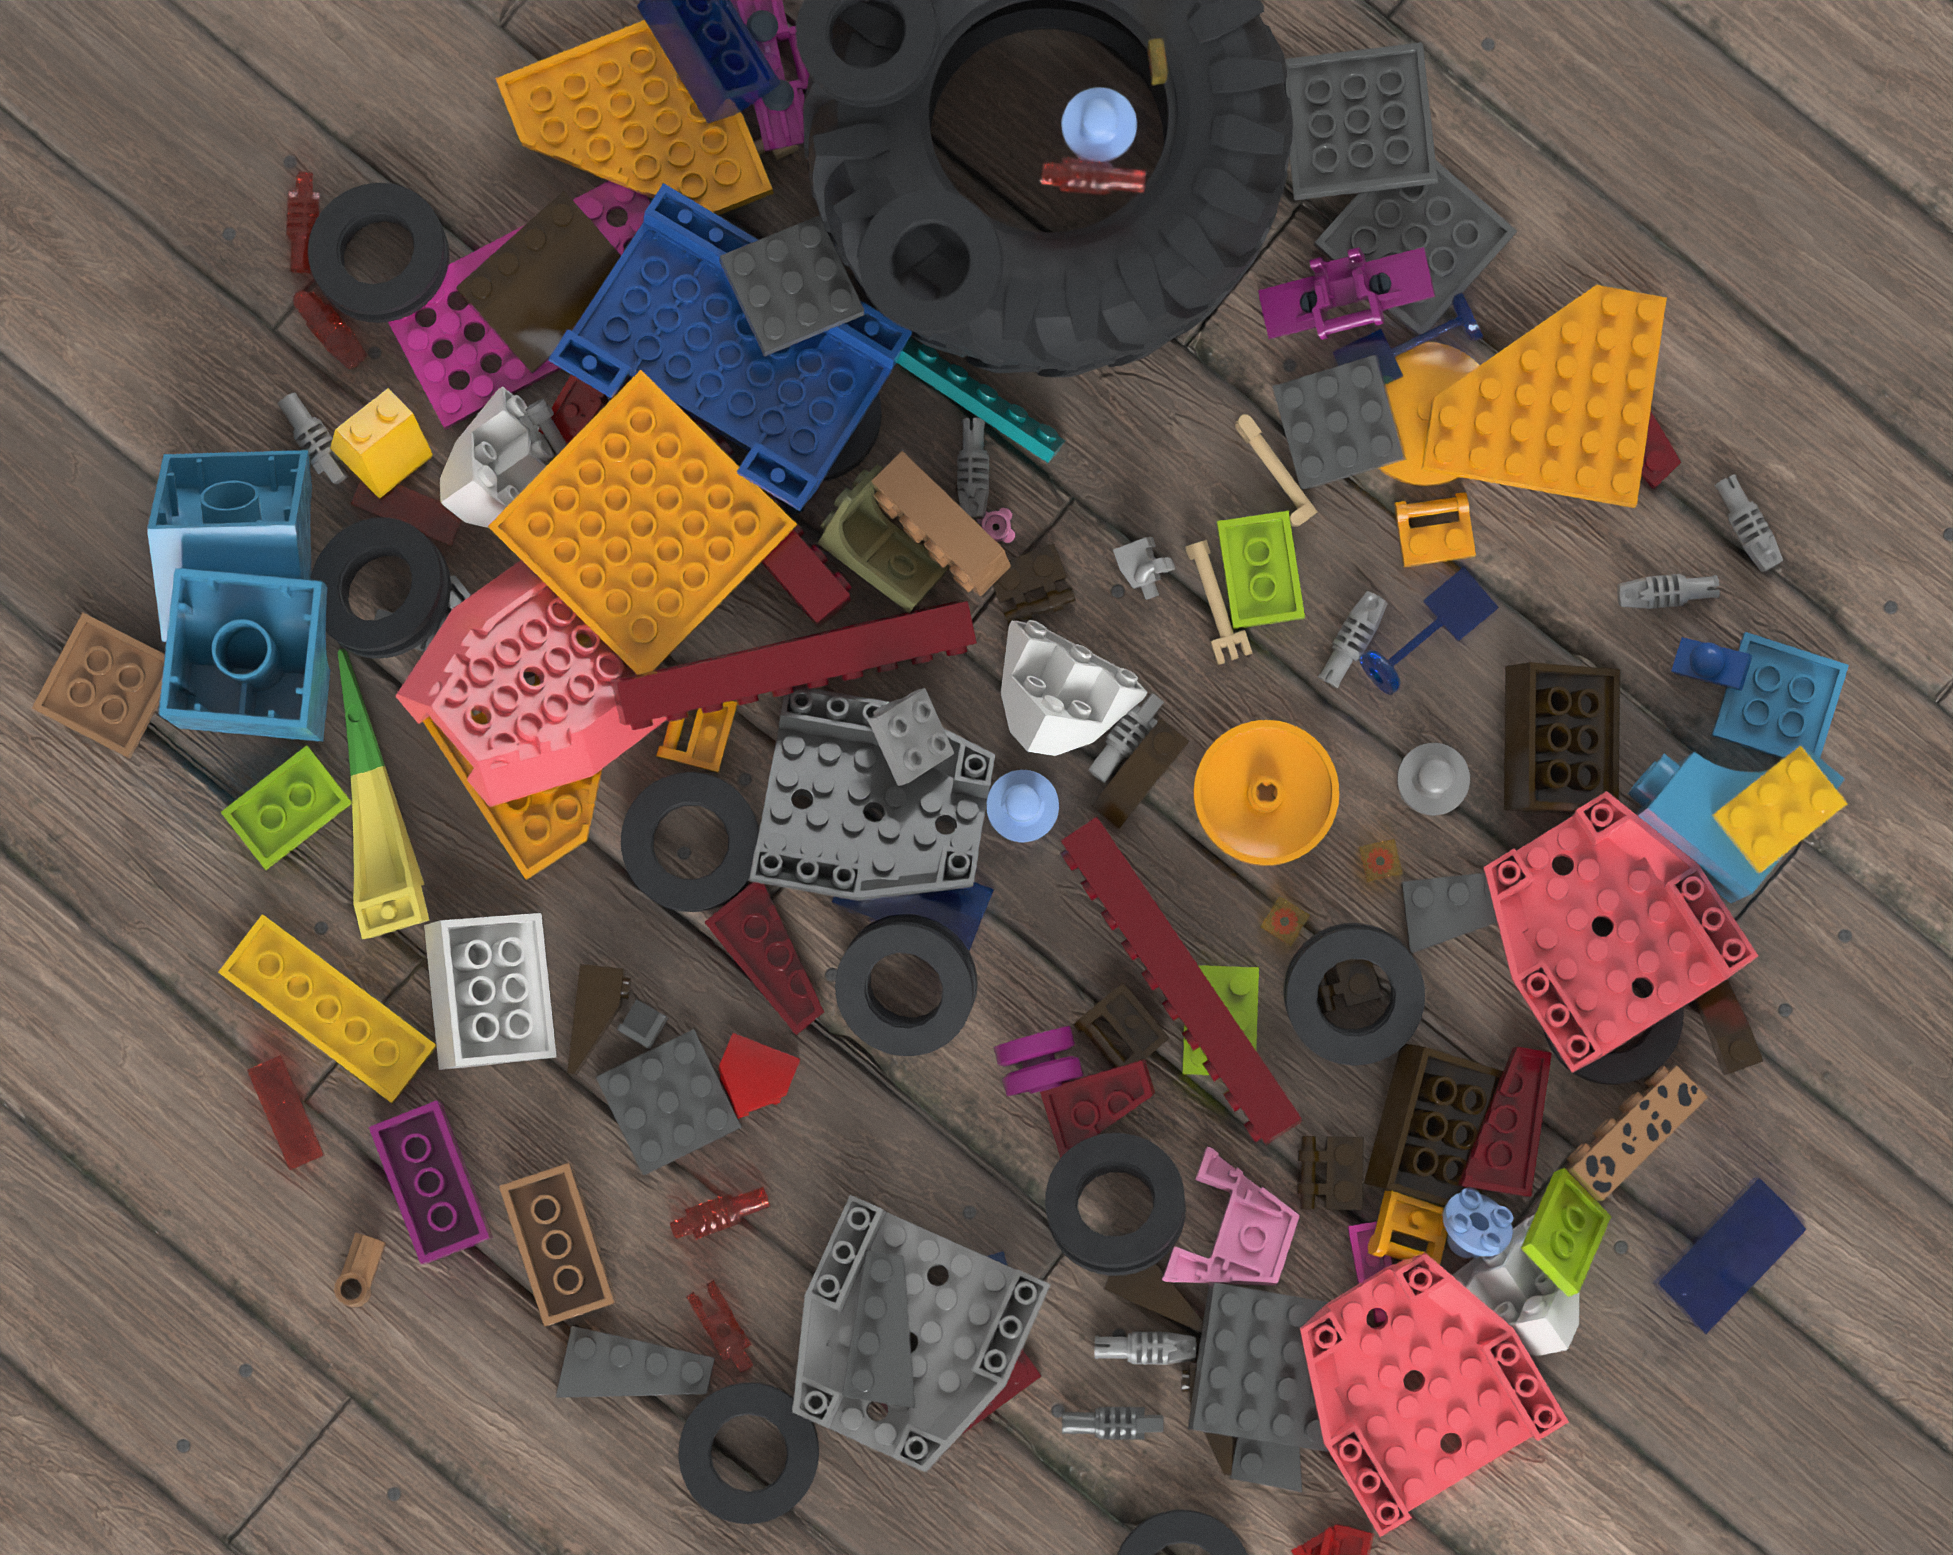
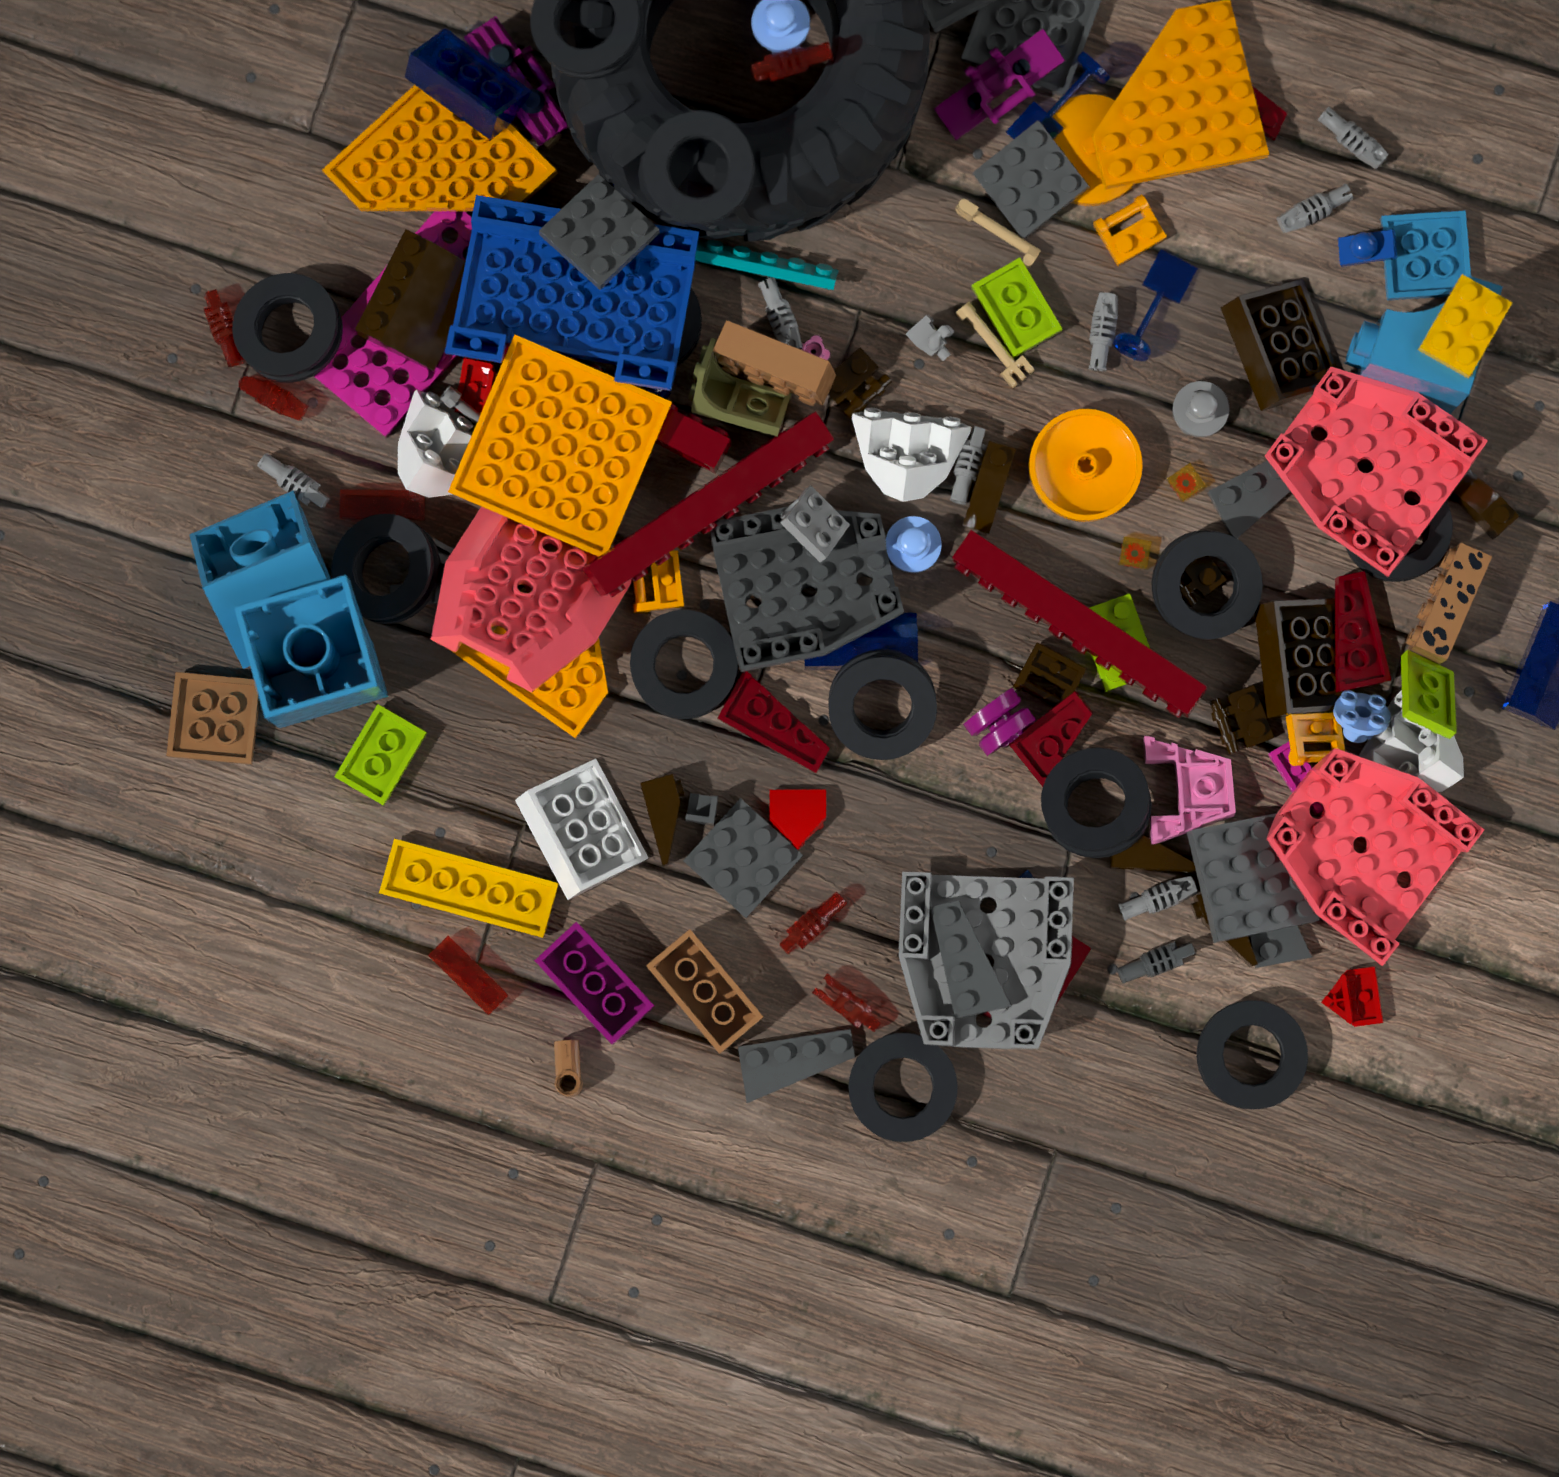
camera: 20 degrees left, 0 degrees up
(382, 443) = (345, 464): yellow slope -> none
(385, 865) = (469, 768): light yellow plate -> none

